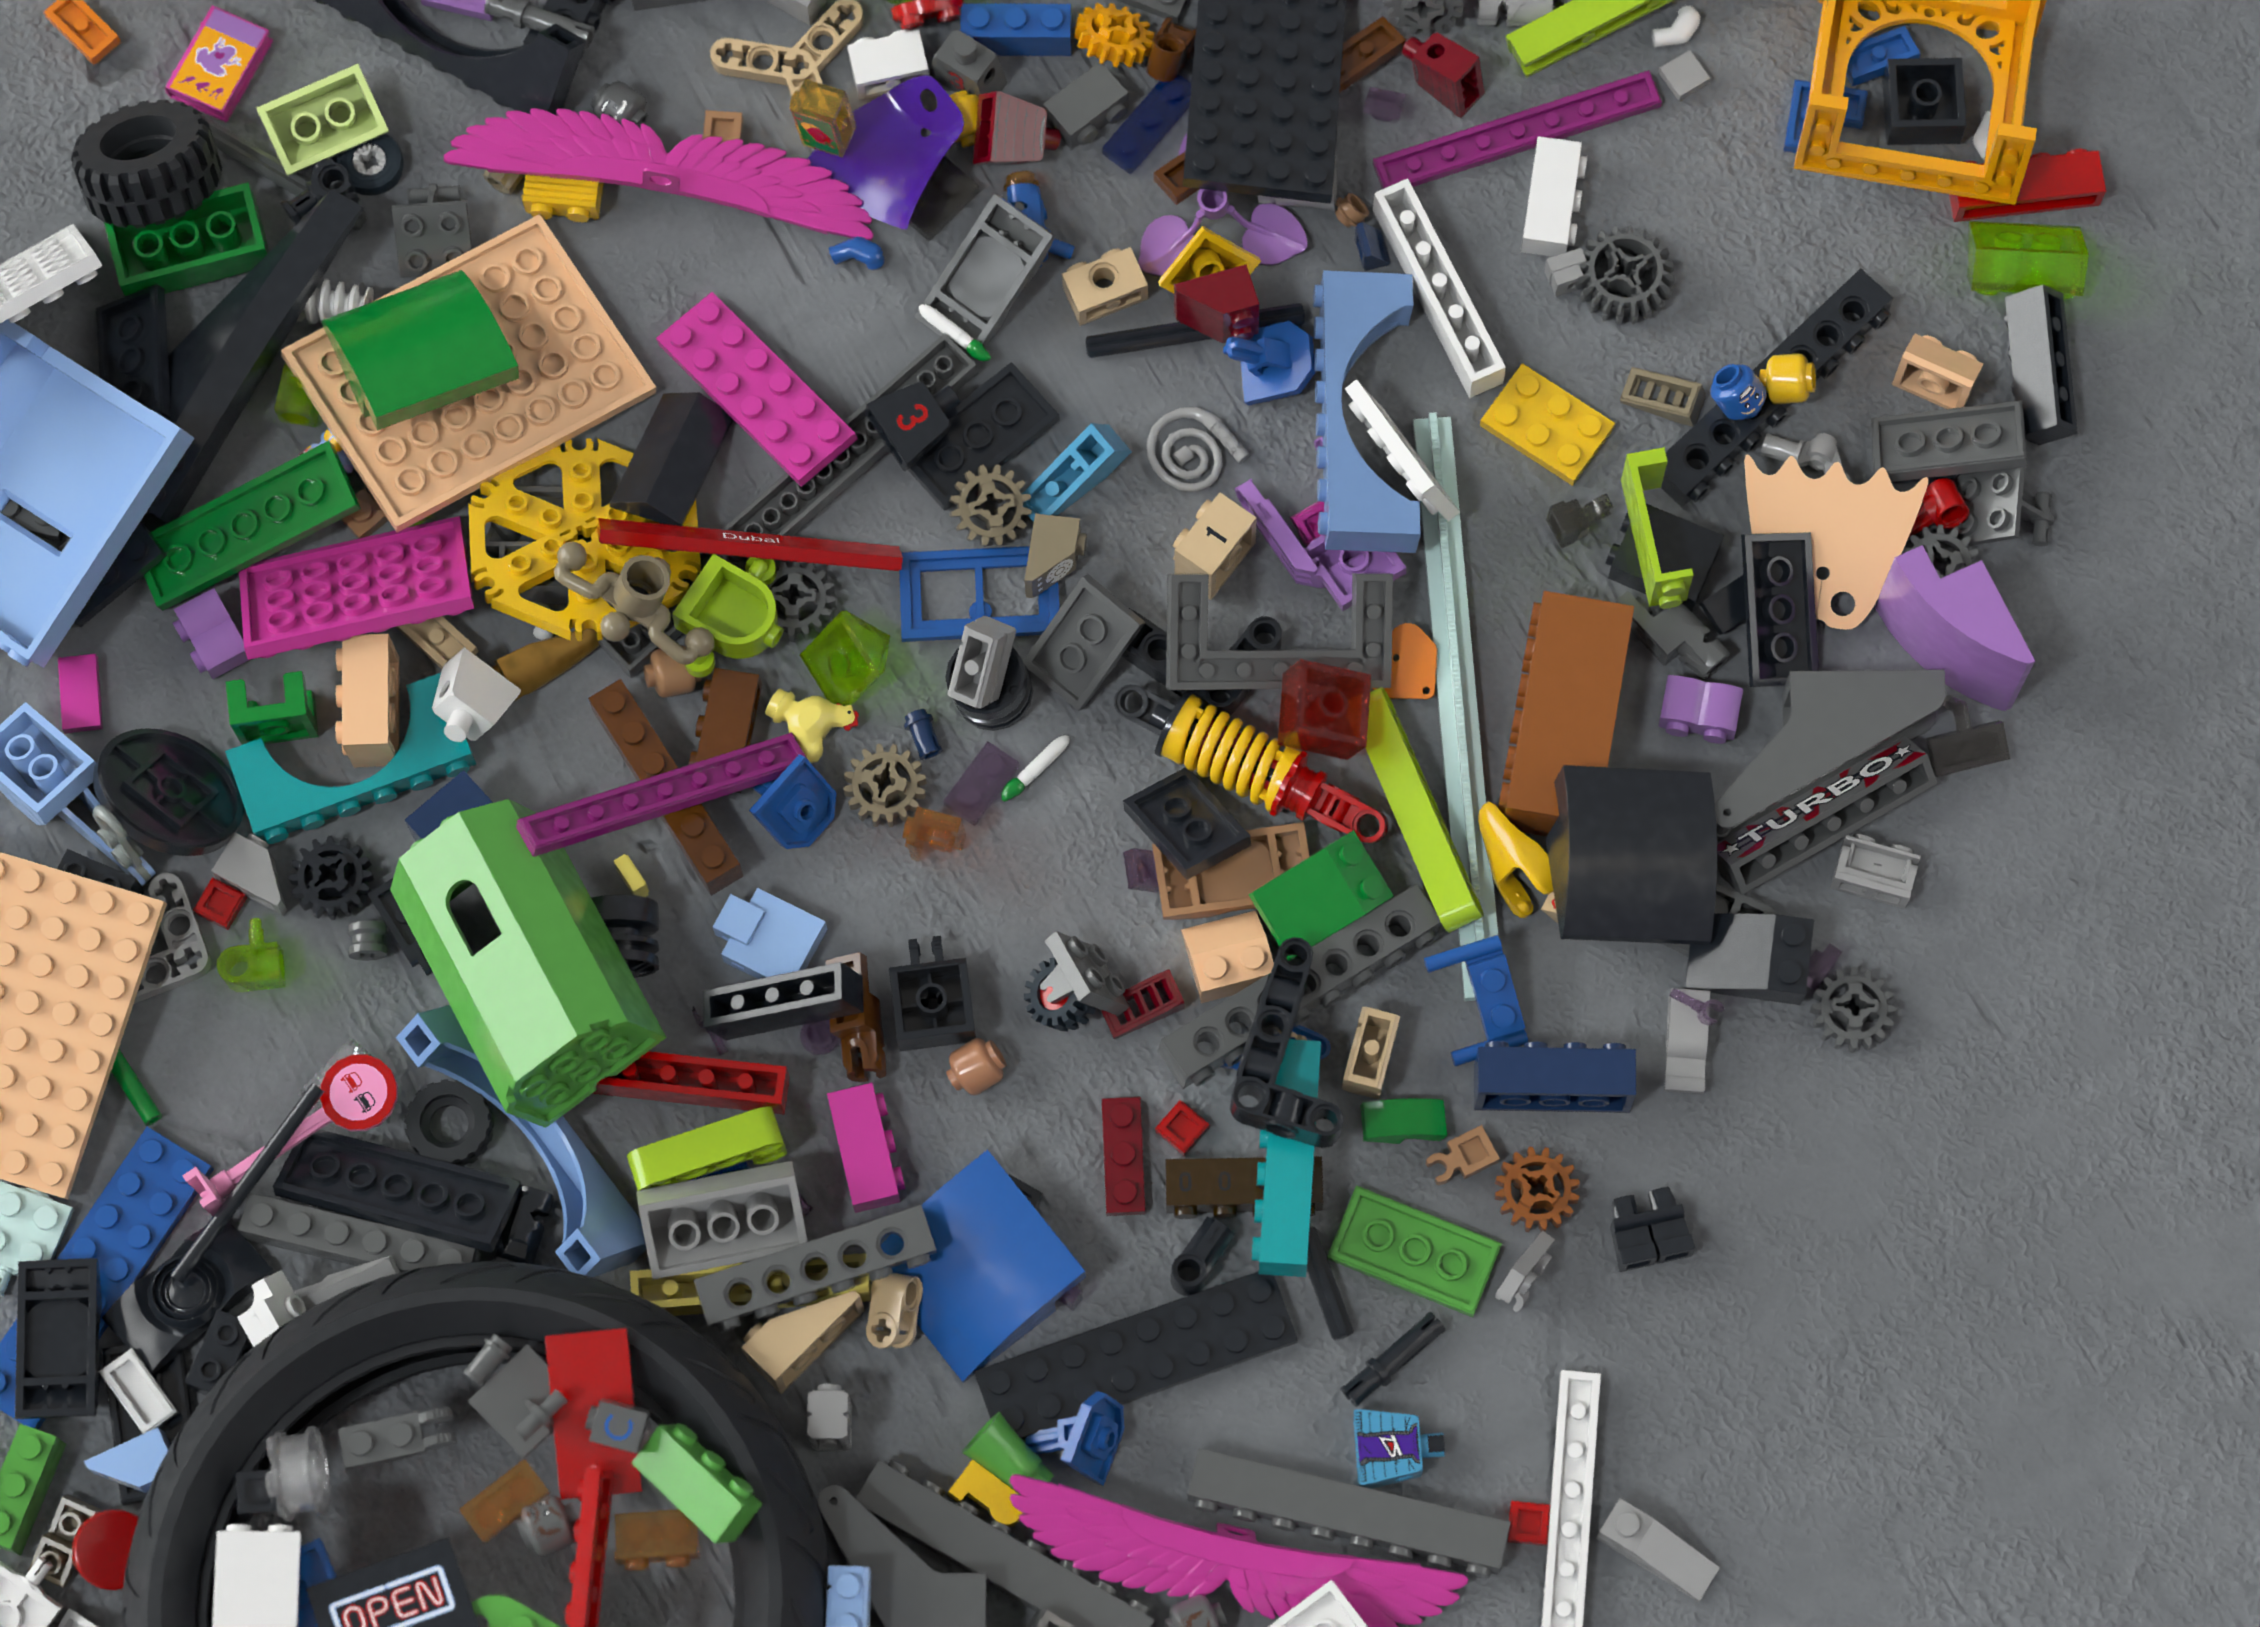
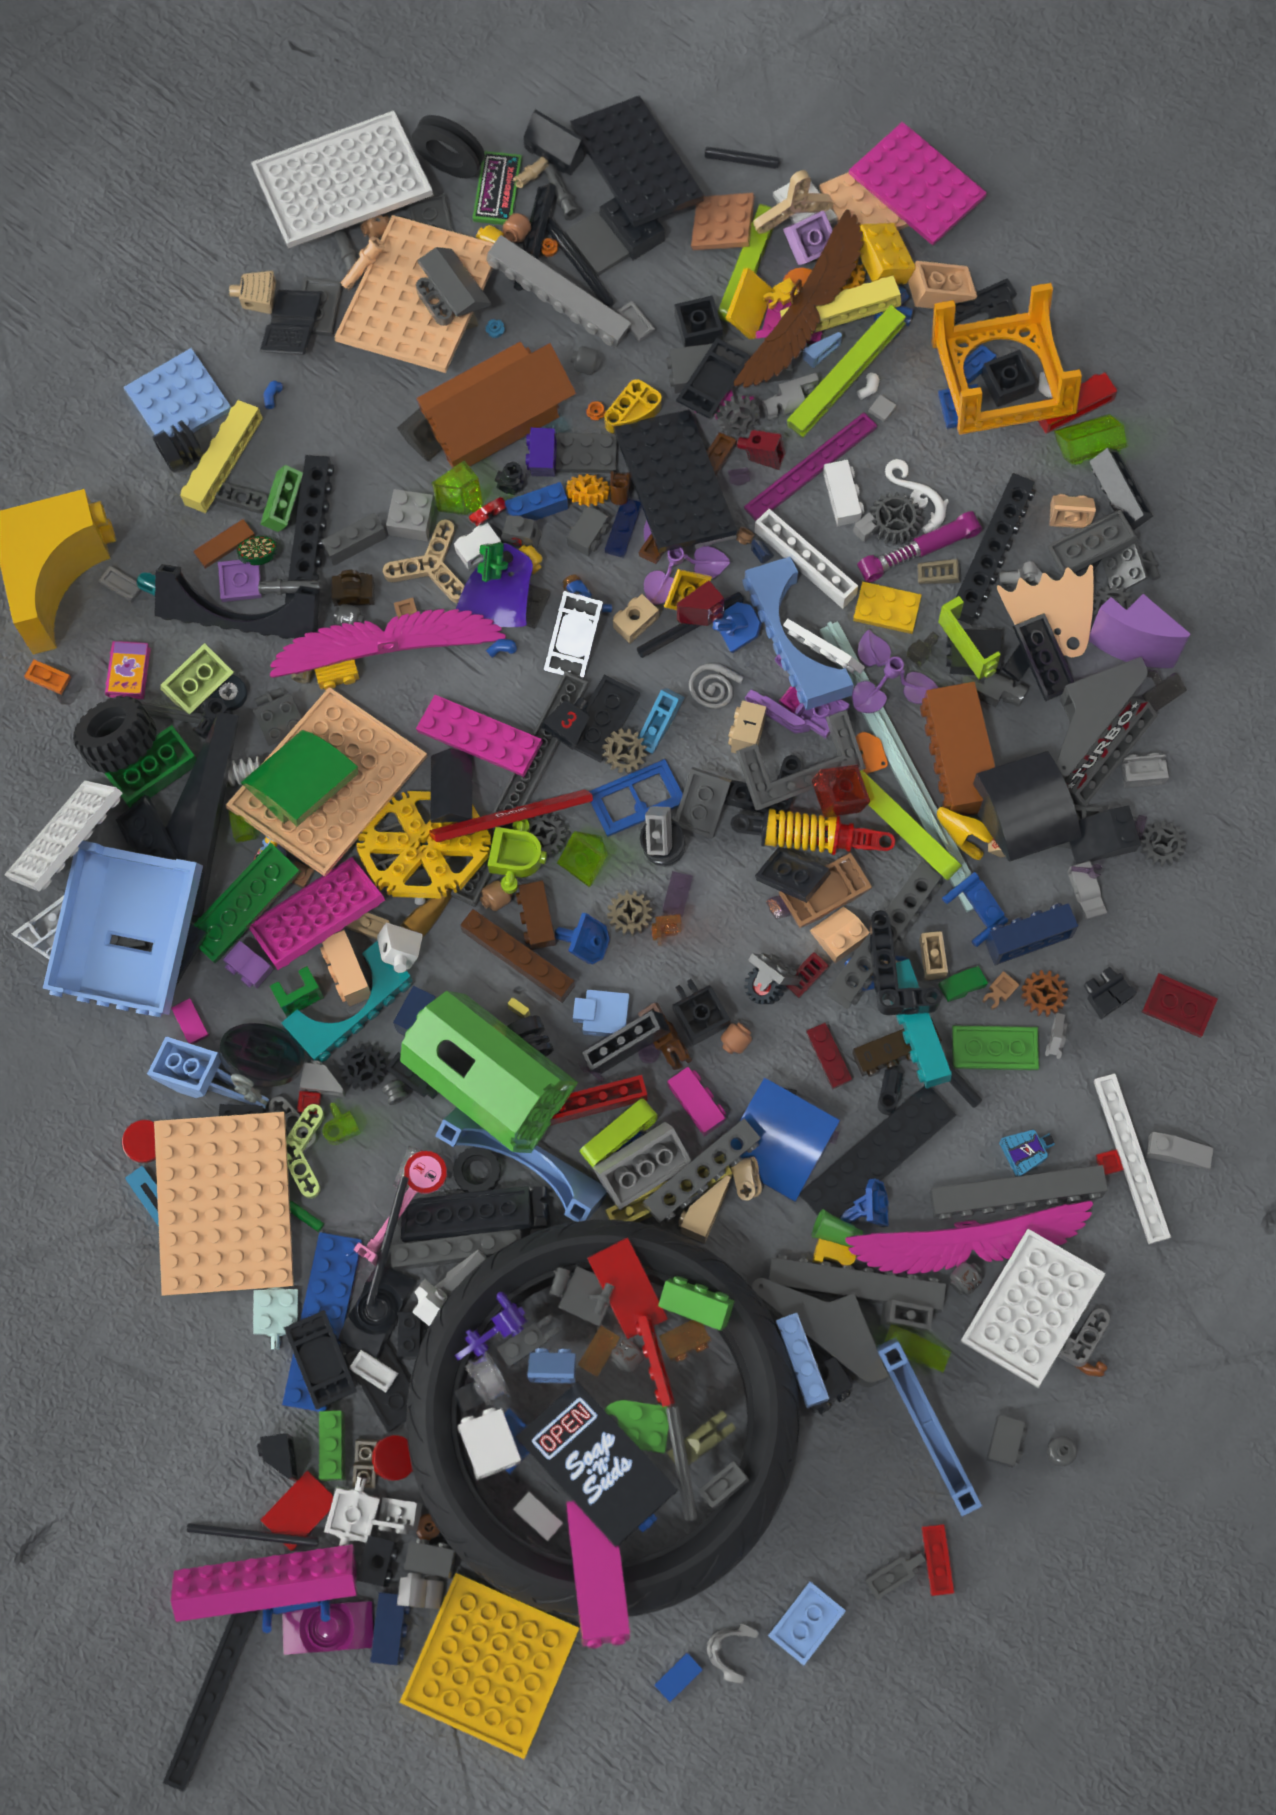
camera: 20 degrees left, 0 degrees up
(133, 1461) = (389, 1408): light blue slope -> none
(173, 968) = (300, 1144): none -> yellowish green piece
(369, 1392) = (507, 1322): none -> dark purple piece
(414, 1496) = (552, 1367): none -> medium blue slope
(617, 1425) = (644, 1289): dark grey brick -> none
(639, 571) = (467, 849): dark tan wheel -> none
(648, 62) = (353, 588): none -> dark brown brick
(657, 795) = (520, 960): magenta tile -> none
(810, 719) = (577, 894): light yellow animal -> none
(823, 117) = (458, 584): clear yellow brick -> none
(829, 1419) = (738, 1246): light grey brick -> none
(899, 99) = (493, 561): none -> green hips
(923, 733) = (637, 879): dark blue pin -> none
(955, 333) = (583, 674): white piece -> none
(1011, 131) = (556, 557): torso -> none
(1035, 768) = (695, 889): white piece -> none
(1052, 551) = (666, 762): dark tan slope -> none
(1182, 1127) = (852, 1030): red tile -> none
(1322, 893) = (876, 884): green slope -> none
(1381, 1369) = (1003, 1114): black pin -> none
(1494, 491) = (874, 651): none -> medium lavender plant
(1689, 241) = (919, 490): none -> white plant
(1700, 709) = (1024, 721): medium lavender brick -> none
(1738, 391) = (980, 555): blue head -> none
(1740, 332) = (963, 527): none -> magenta piece
(1764, 1299) = (1179, 1005): none -> dark red plate
(1788, 378) = (1001, 540): yellow head -> none
(1941, 506) = (1102, 576): red axle -> none

